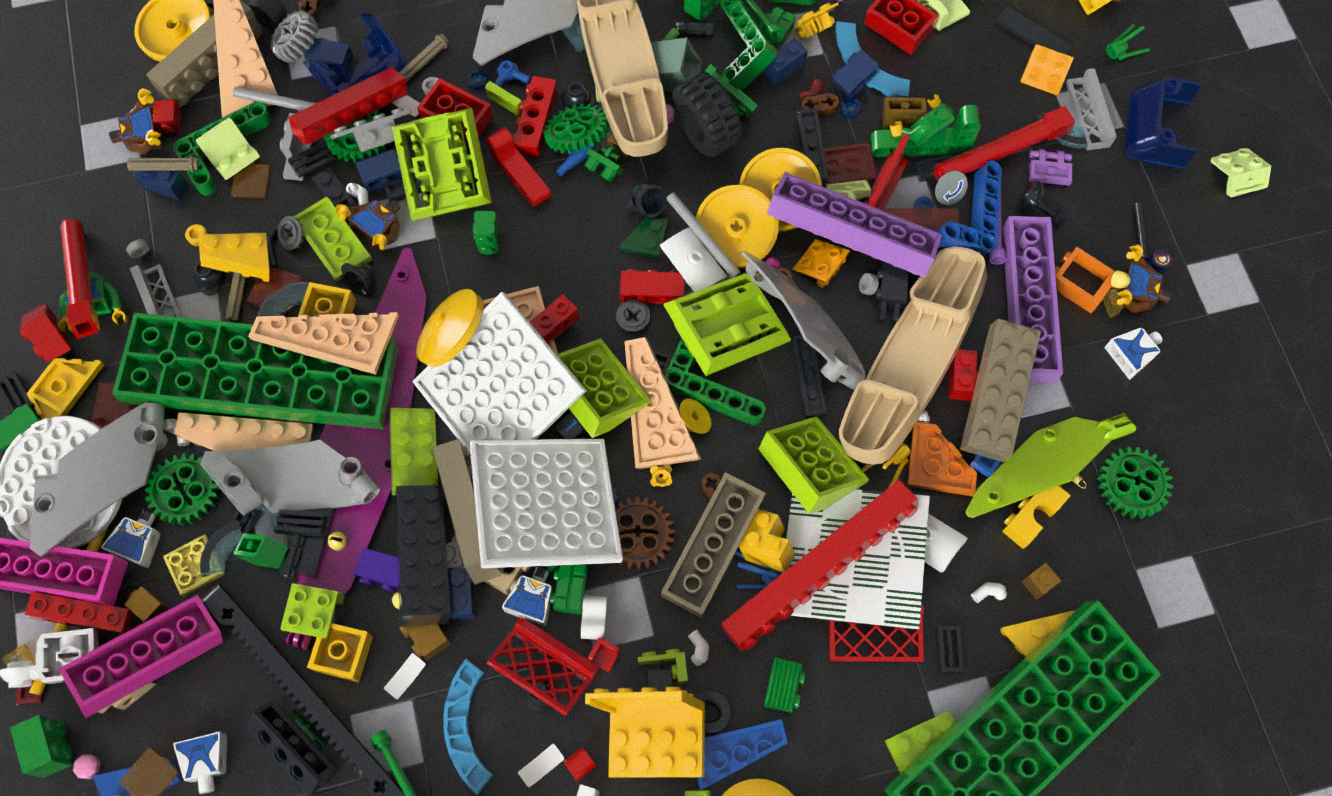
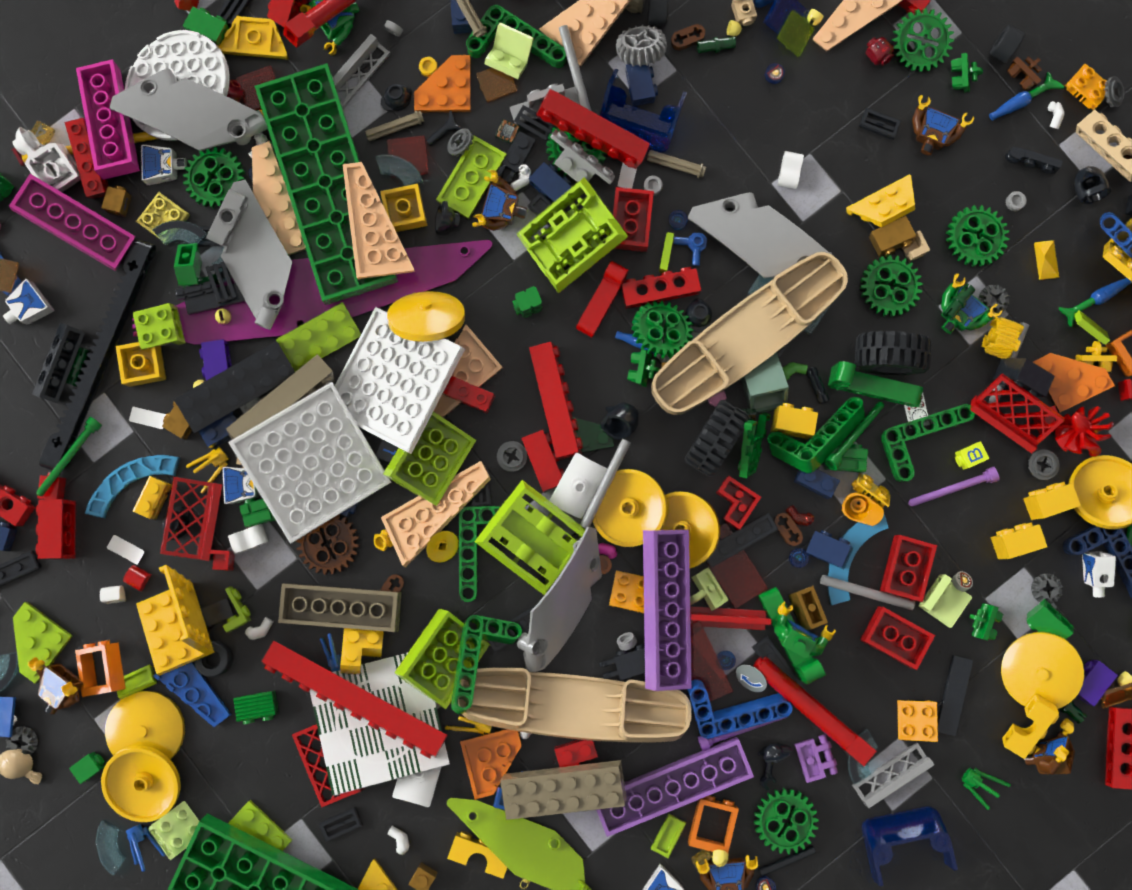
camera: 70 degrees right, 15 degrees up
(228, 216) = (447, 87): none -> orange plate
(236, 253) = (417, 112): yellow wedge -> none
(305, 190) = (507, 131): none -> tile
(488, 615) = (216, 457): none -> yellow plant
(497, 704) = (152, 498): none -> yellow brick
(597, 249) = (555, 400): none -> red brick
(721, 49) = (794, 421): none -> yellow brick
(774, 127) = (742, 501): none -> red brick
(803, 416) = (472, 655): none -> green beam
(831, 32) = (866, 512): none -> light orange cap
(889, 82) = (867, 592): none -> light grey piece
(962, 53) = (897, 637): none -> red brick
(1079, 327) = (668, 835): none -> lime tile
(1102, 215) = (802, 828): none -> green gear

